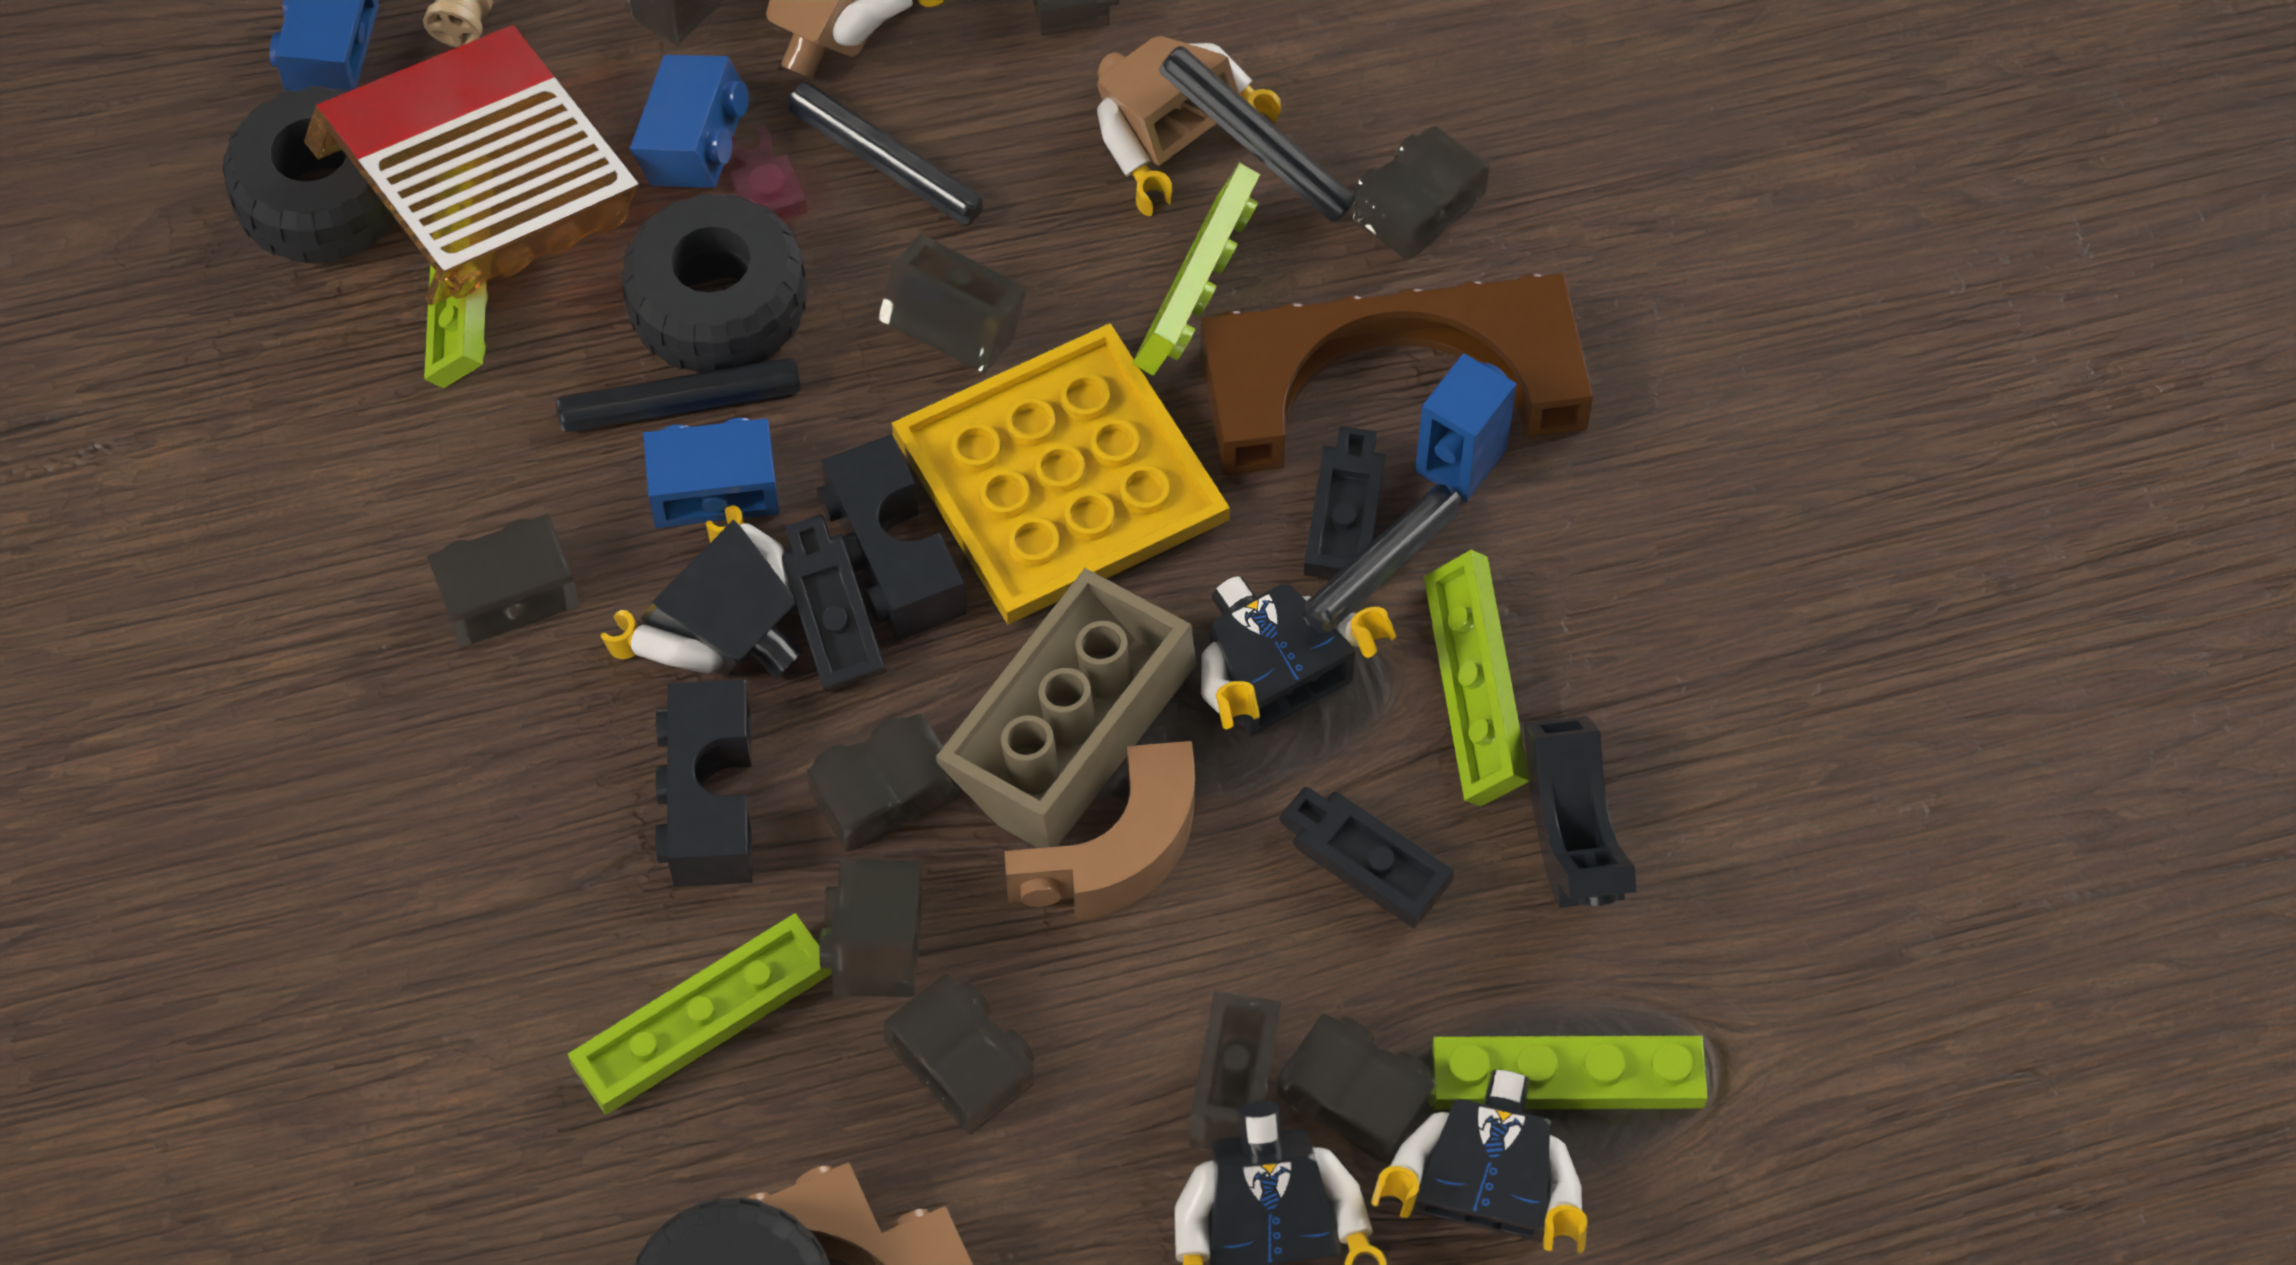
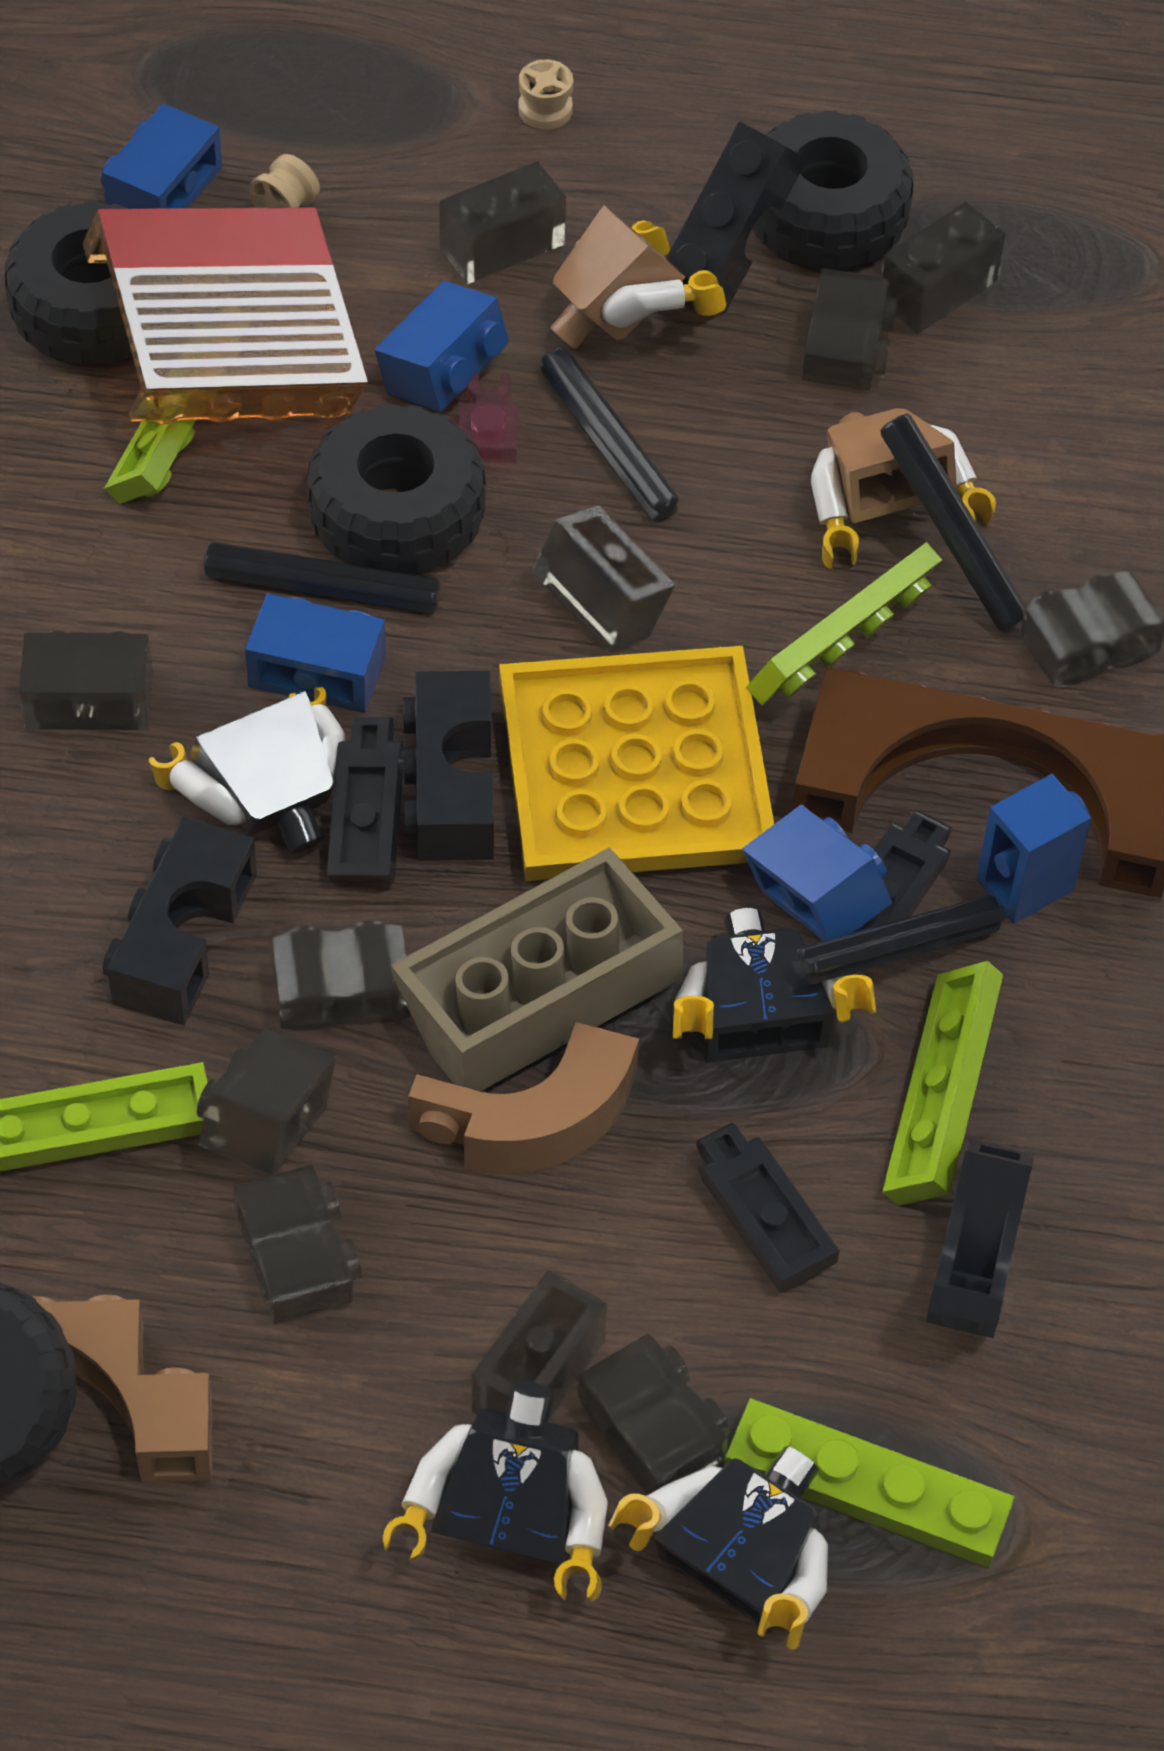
camera: 20 degrees right, 5 degrees down
(1283, 523) = (818, 874): none -> blue brick

